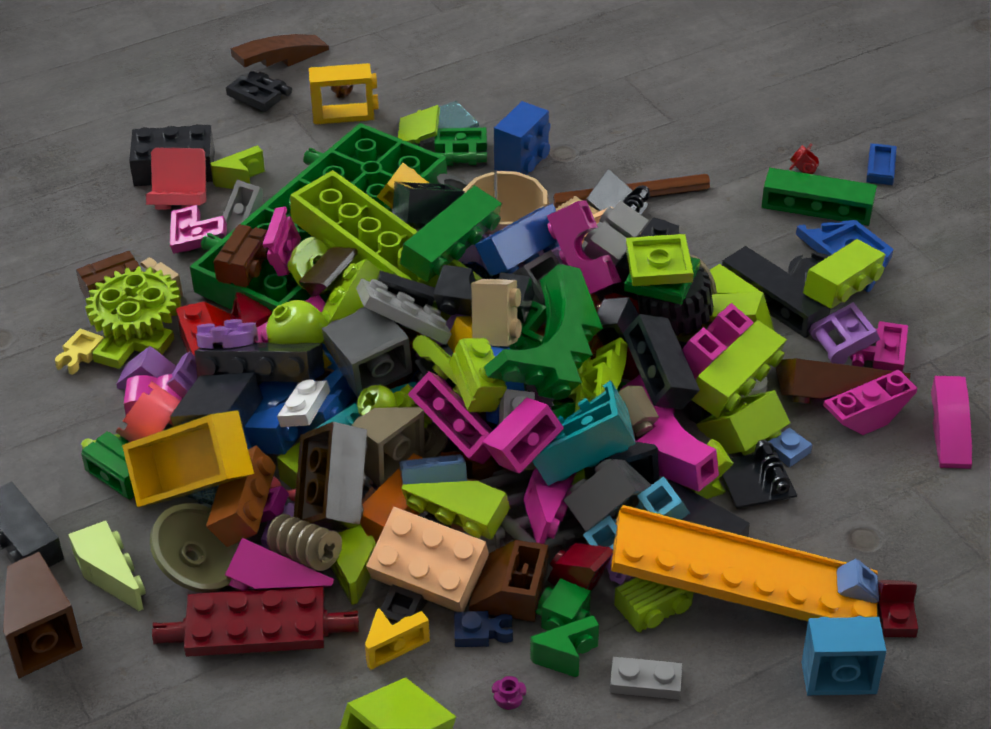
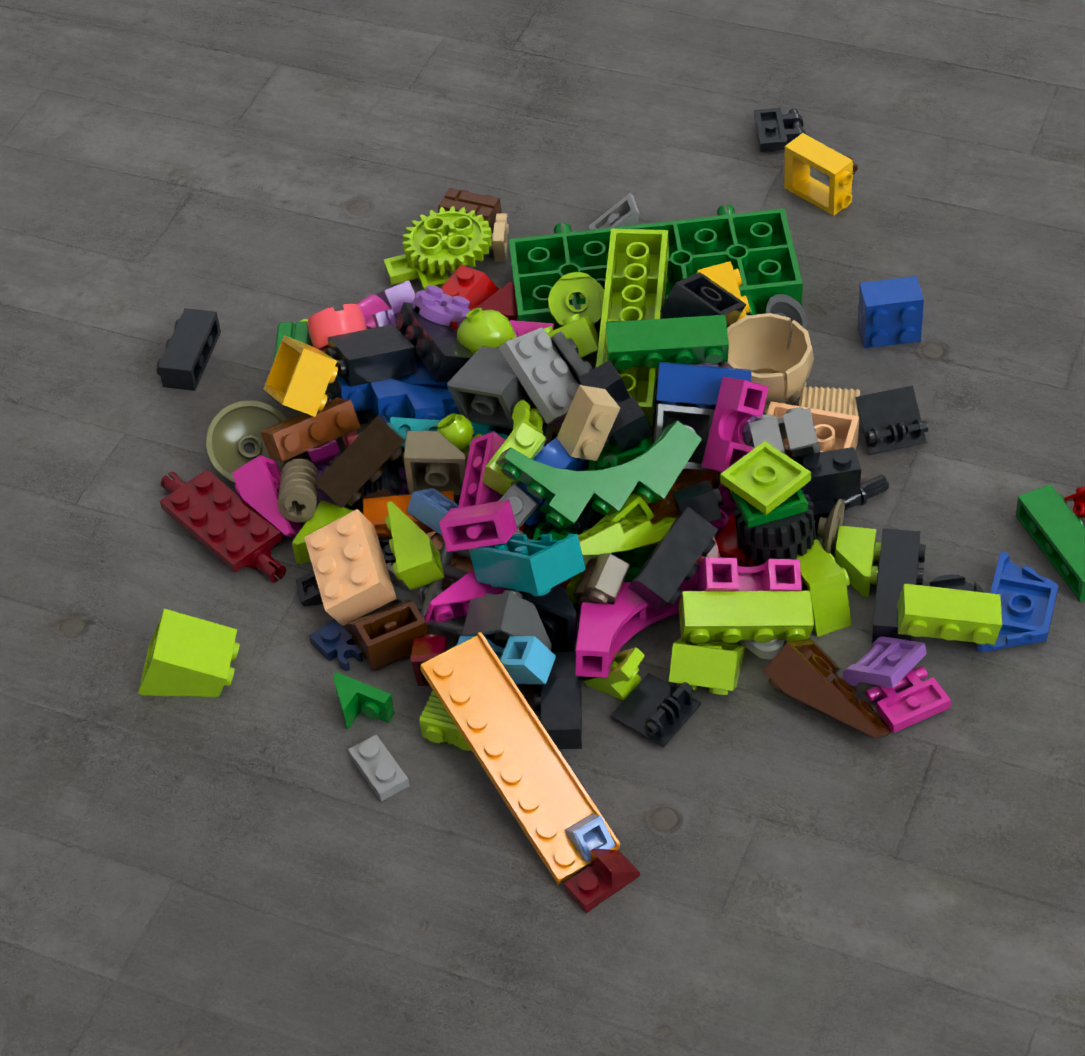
camera: 55 degrees right, 5 degrees up
(37, 617) = (114, 410): reddish brown slope -> none
(78, 349) = (382, 250): light yellow plate -> none
(103, 564) = (201, 403): yellowish green slope -> none
(146, 139) = (638, 142): black brick -> none
(177, 177) = (609, 166): coral bracket -> none
(188, 230) = (571, 210): dark pink plate -> none
(237, 167) = (666, 185): lime slope -> none
(241, 256) = (539, 255): reddish brown brick -> none
(274, 49) = (850, 106): reddish brown slope -> none
(281, 240) = (576, 256): dark pink plate -> none
(303, 403) = (413, 394): white plate -> none
(327, 269) = (561, 309): dark brown slope -> none
(391, 641) = (273, 600): yellow slope -> none
(419, 125) = (846, 244): lime piece -> none
(455, 116) = (886, 256): clear light blue piece -> none
(466, 141) = (849, 274): green plate -> none
(508, 699) = (290, 704): magenta plate -> none
(563, 605) = (394, 675): green brick -> none
(656, 188) = (946, 430): dark orange axle -> none
(791, 447) = (717, 710): medium blue plate -> none
(843, 656) = (492, 866): dark azure brick -> none
(872, 403) = (810, 728): dark pink slope -> none
(952, 422) = (856, 797): dark pink slope -> none

